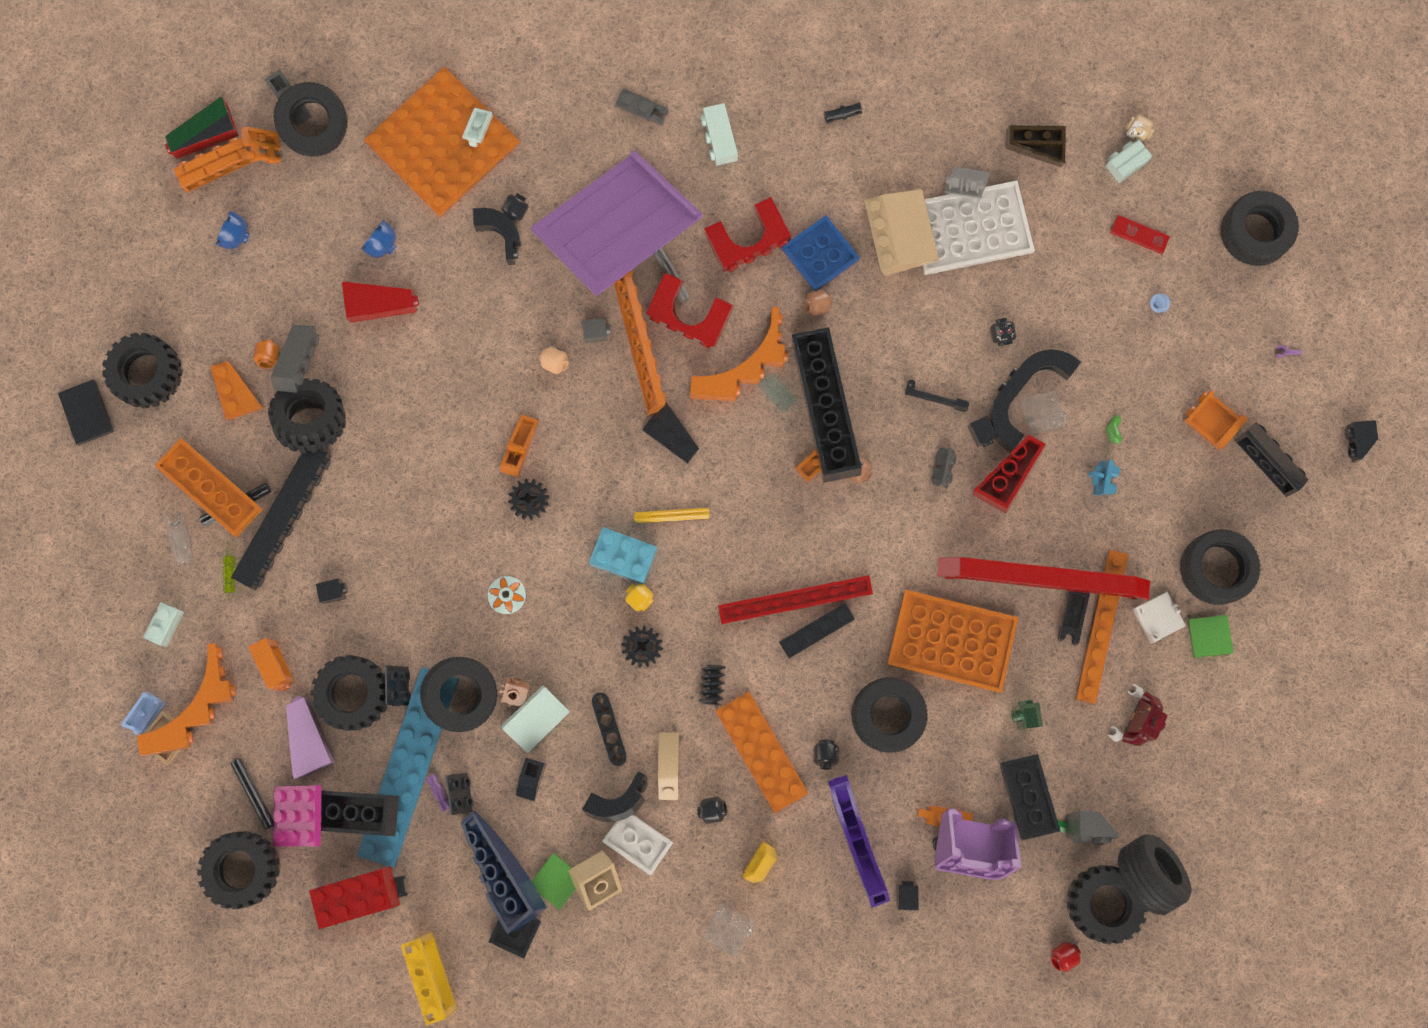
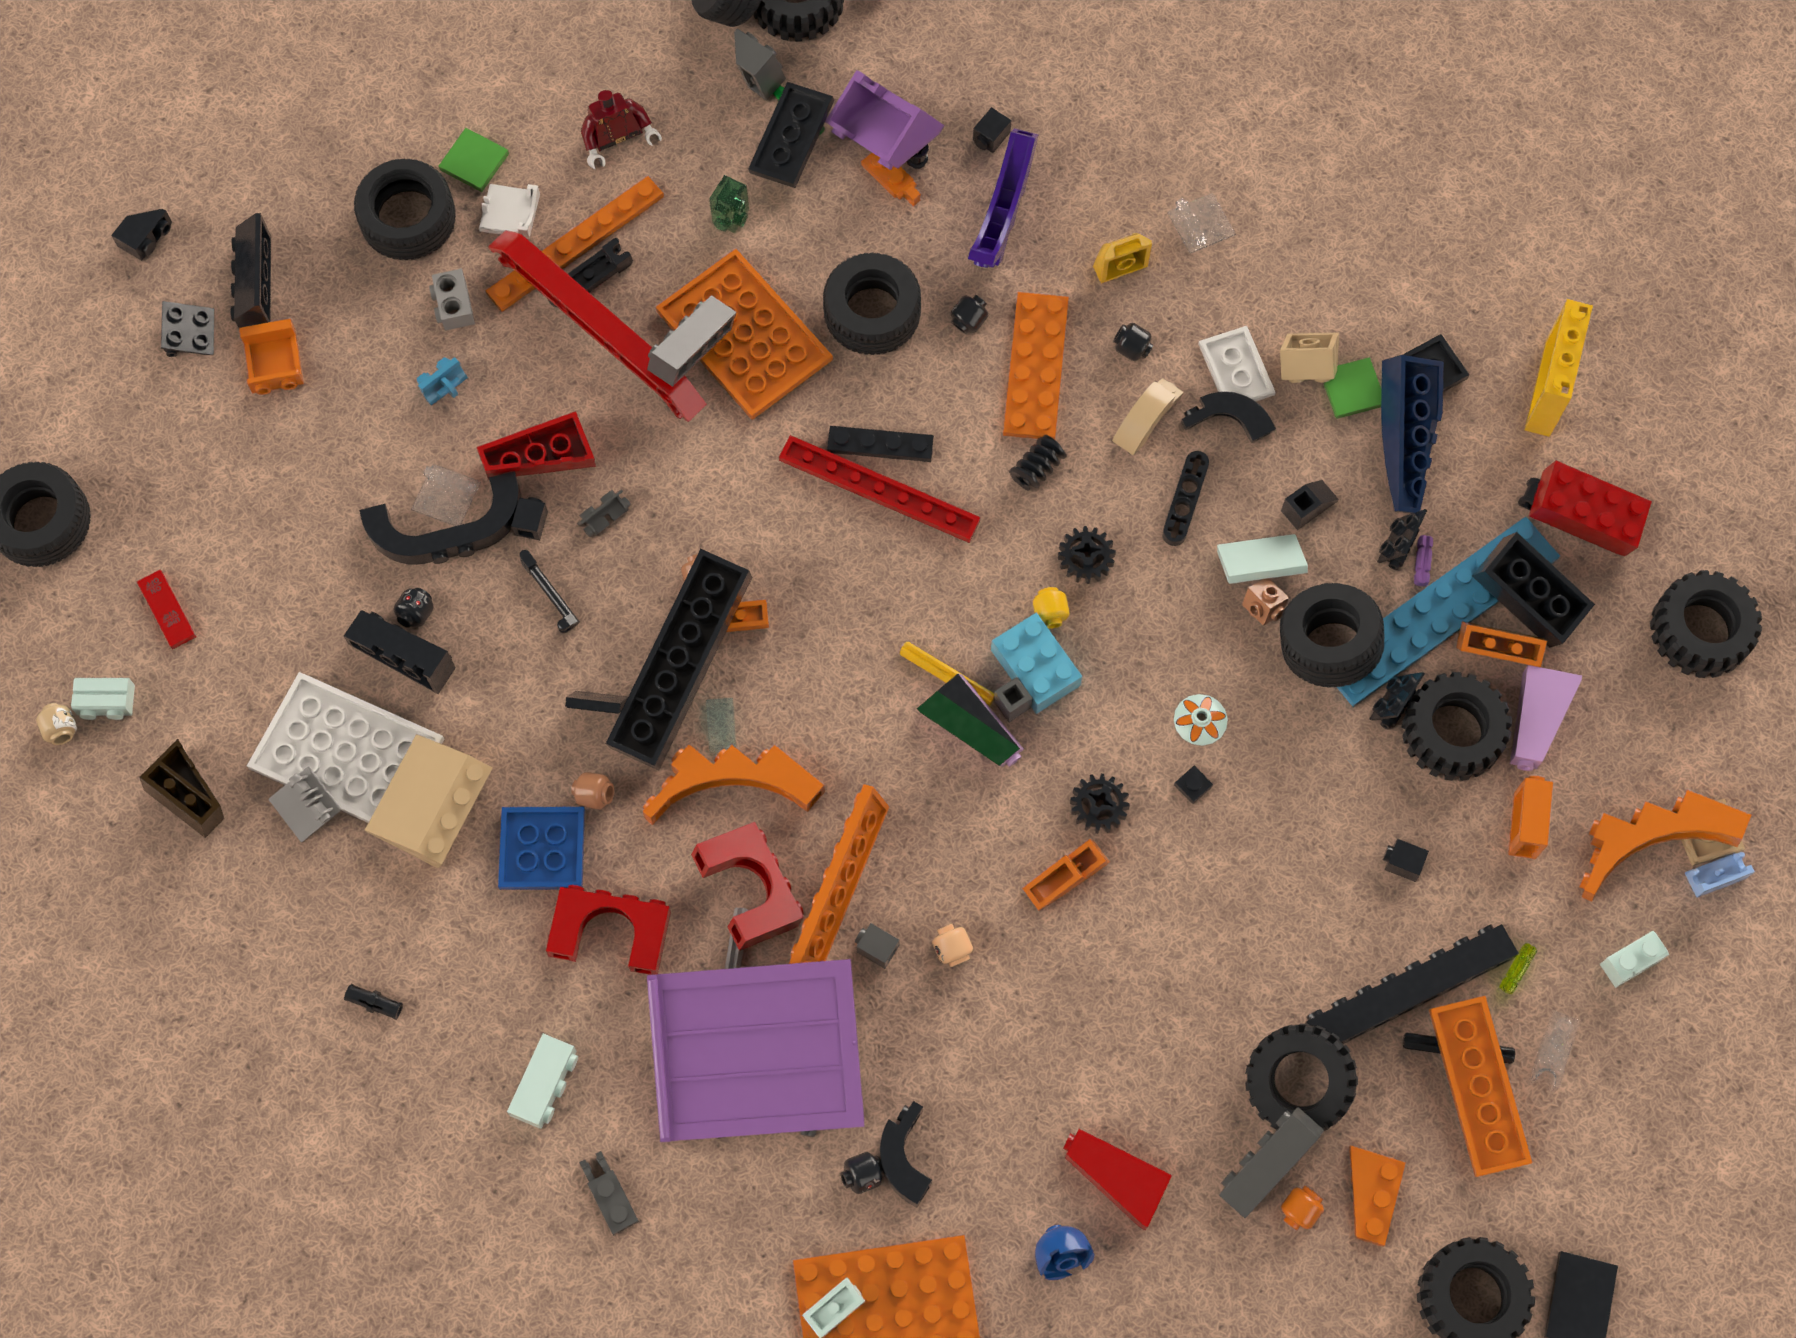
camera: 145 degrees left, 10 degrees down
(252, 793) = (1640, 703): black axle -> none
(297, 816) = (1602, 634): dark pink plate -> none
(355, 766) = (1501, 644): none -> orange brick
(483, 551) = (1193, 784): none -> black plate
(620, 522) = (1012, 699): none -> dark grey brick
(634, 493) = (971, 720): none -> dark green slope
(671, 434) = (879, 761): black wing -> none
(854, 350) = (595, 702): none -> black tile
(974, 601) = (691, 340): none -> brick
(988, 302) = (400, 650): none -> black wedge
(1112, 430) = (389, 423): bright green arm -> none
(1139, 537) = (455, 299): none -> light grey brick
(1160, 303) = (215, 517): light blue tile -> none
(1279, 401) = (187, 329): none -> hinge
(1287, 351) = (130, 373): medium lavender hand -> none

